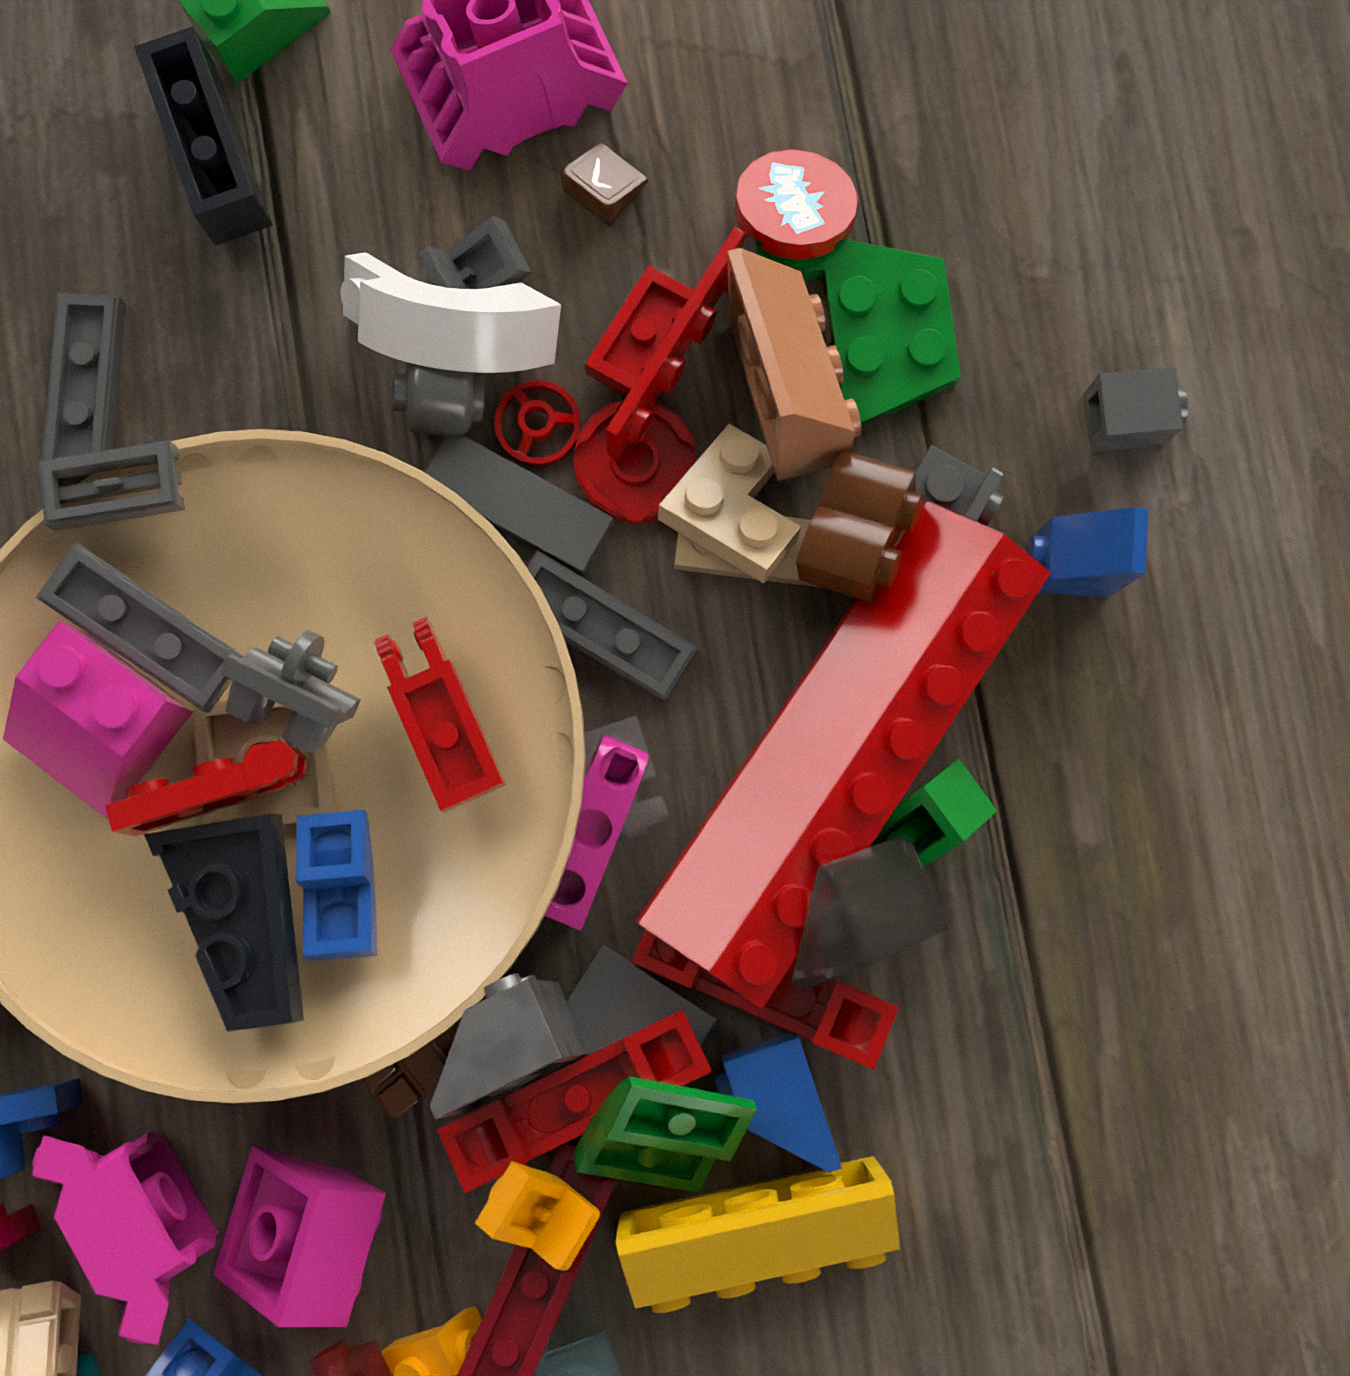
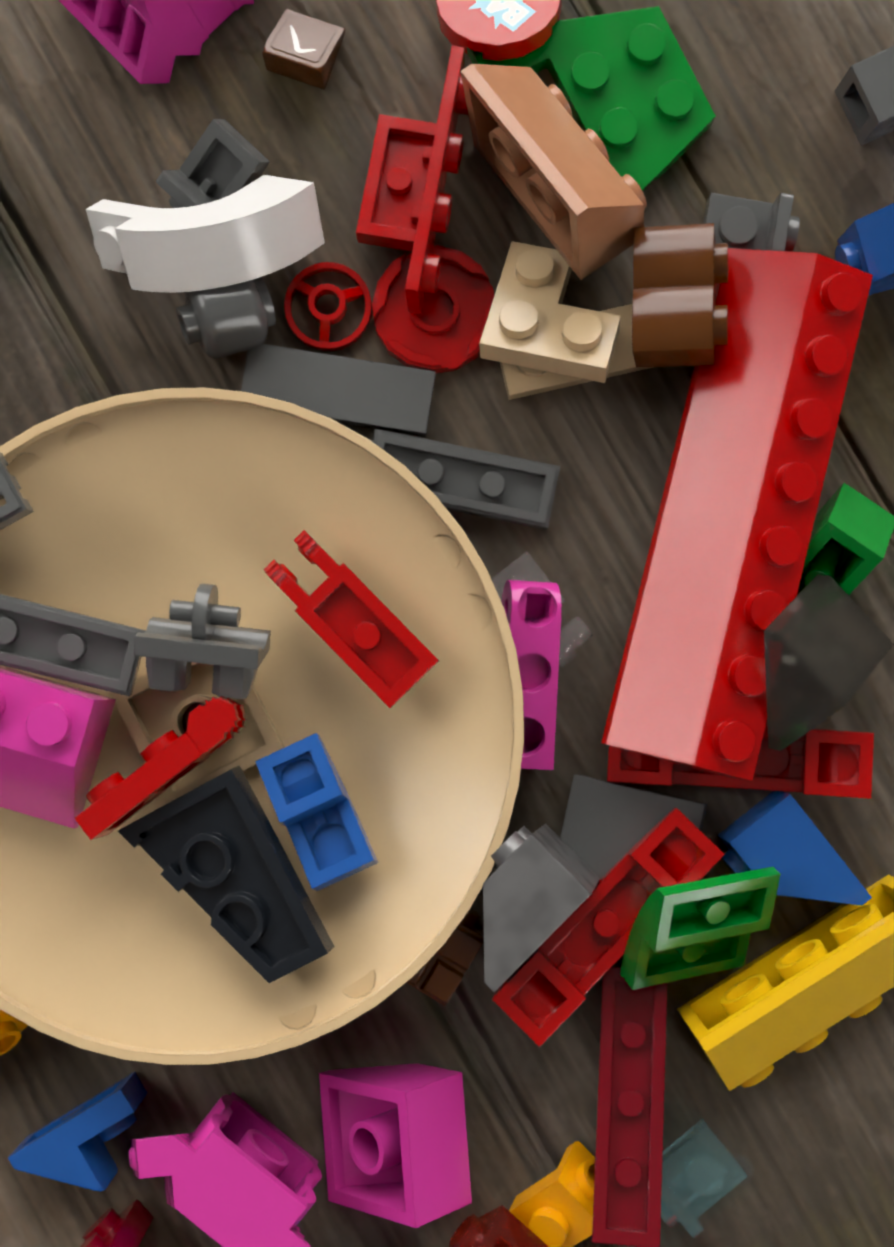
camera: 20 degrees left, 5 degrees up
(539, 1214) = (615, 1039): light orange bracket -> none

